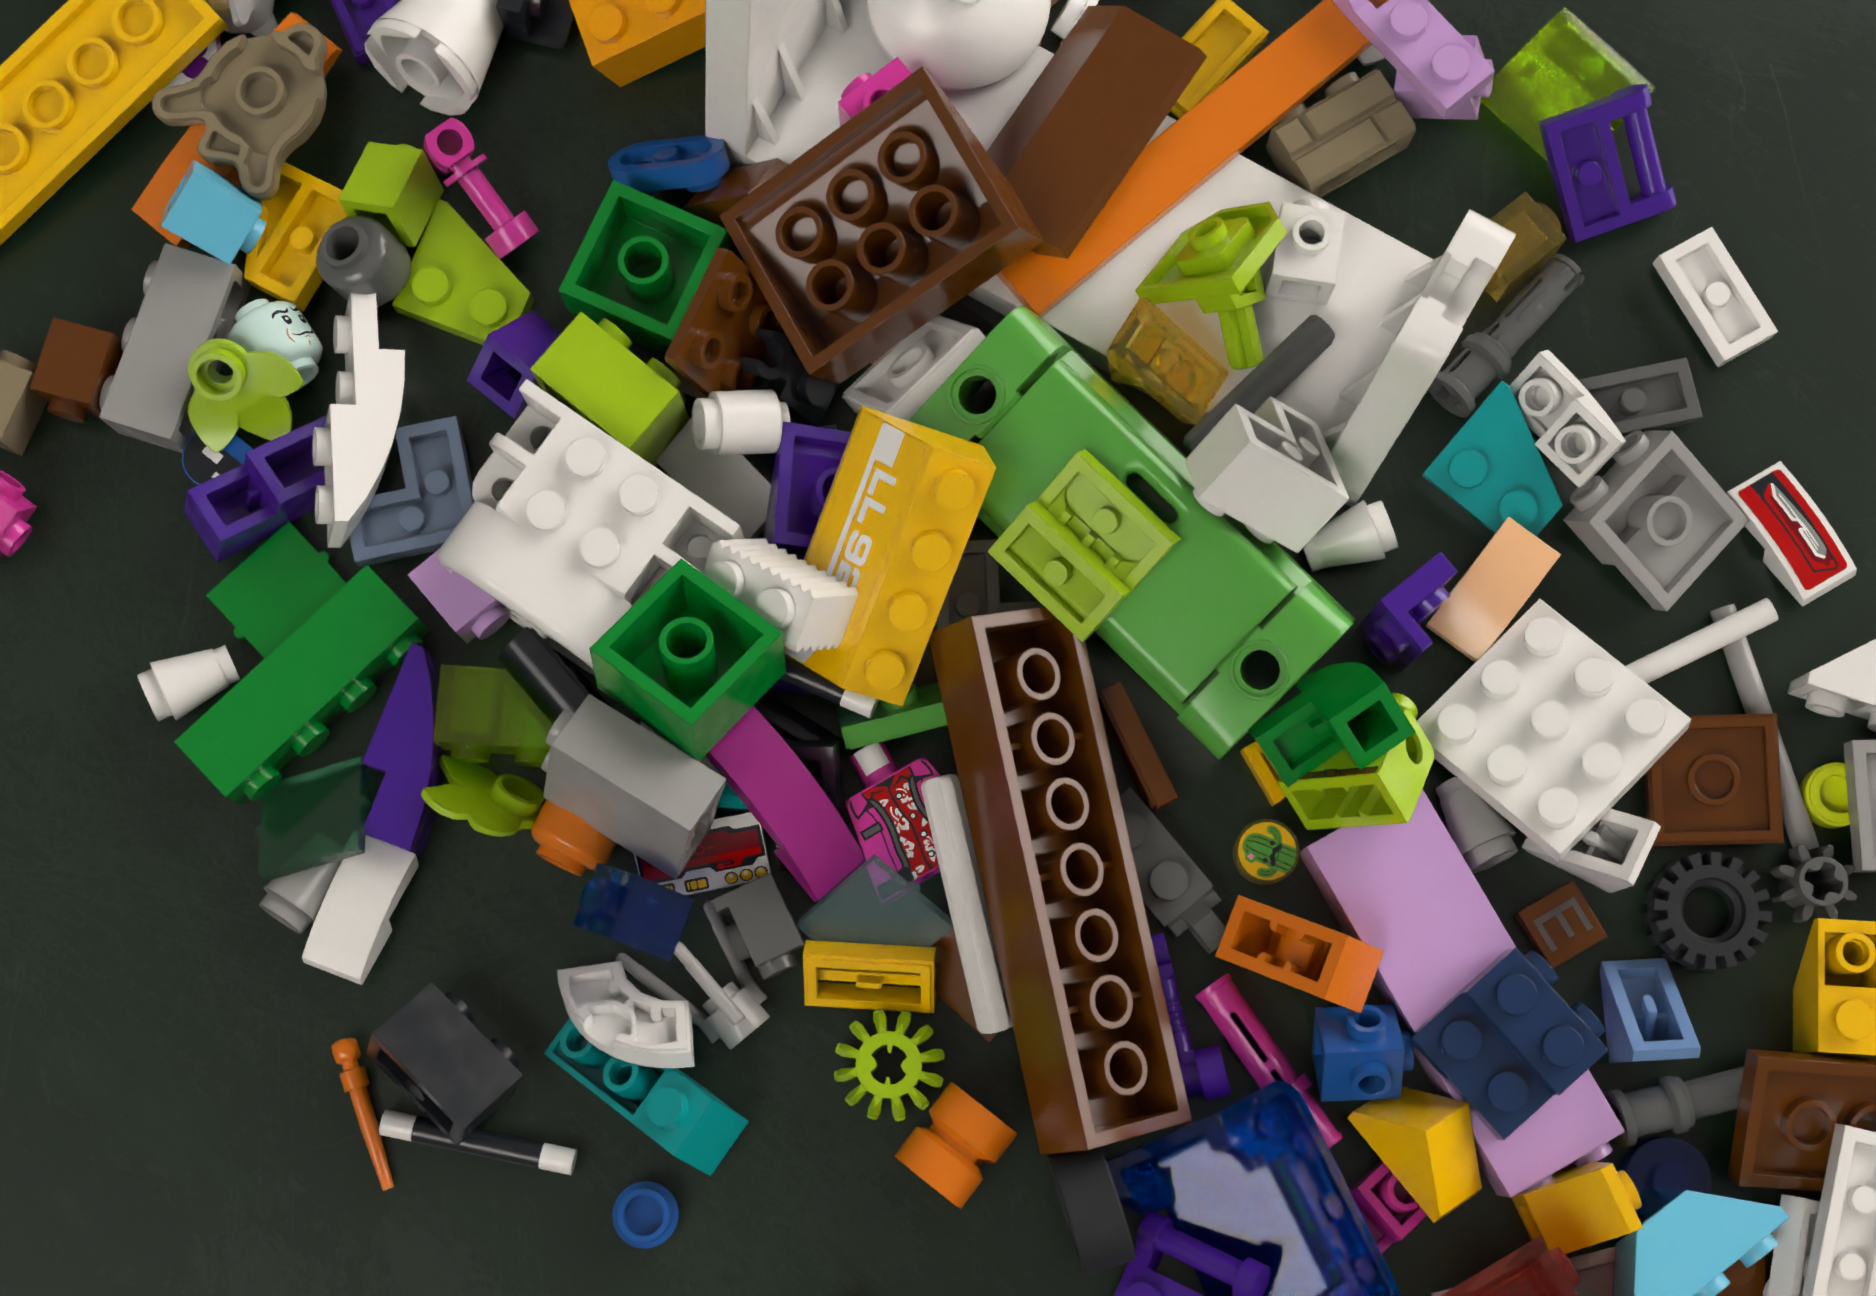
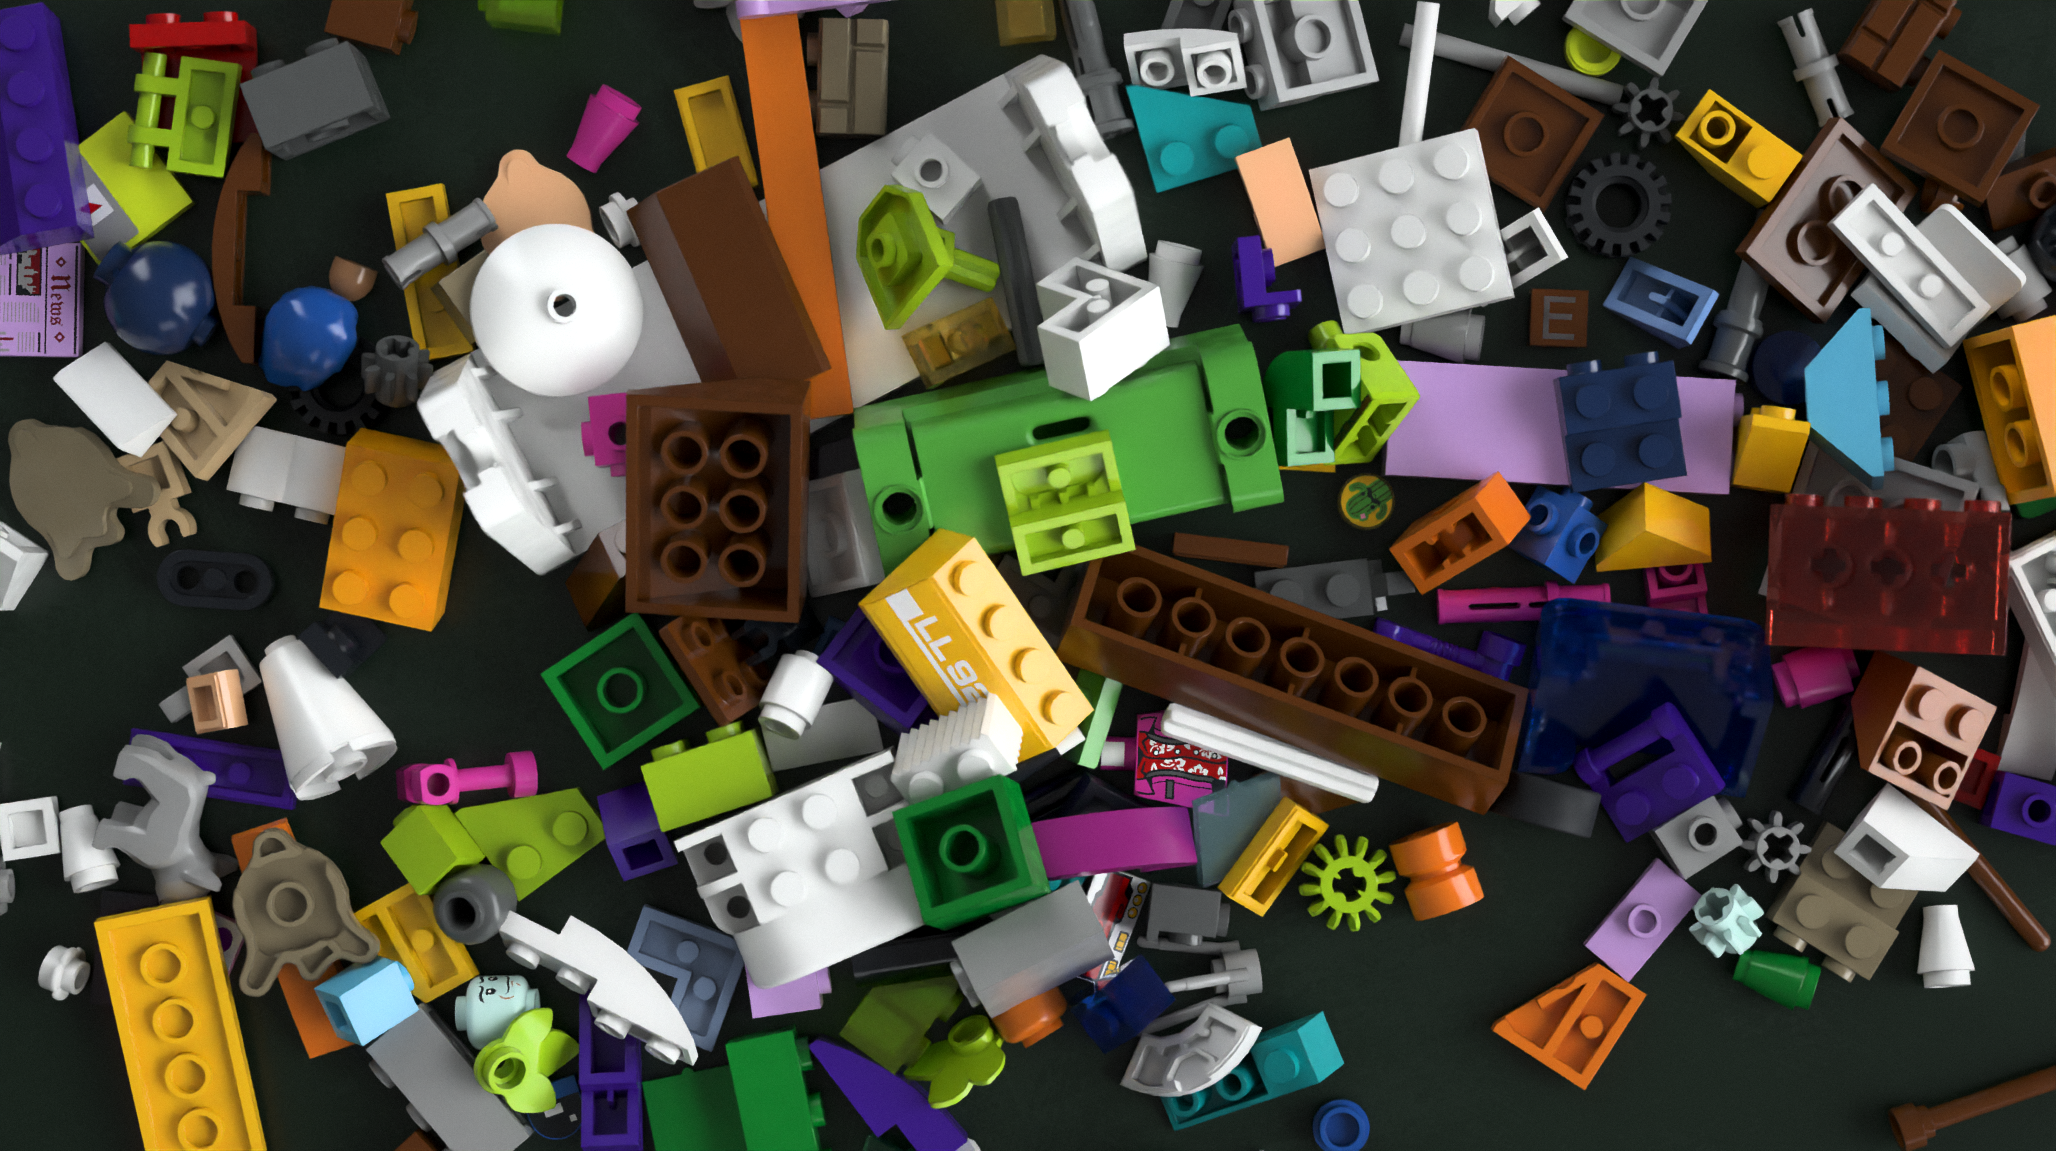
camera: 55 degrees left, 10 degrees up
(671, 164) = (543, 618): blue plate -> none

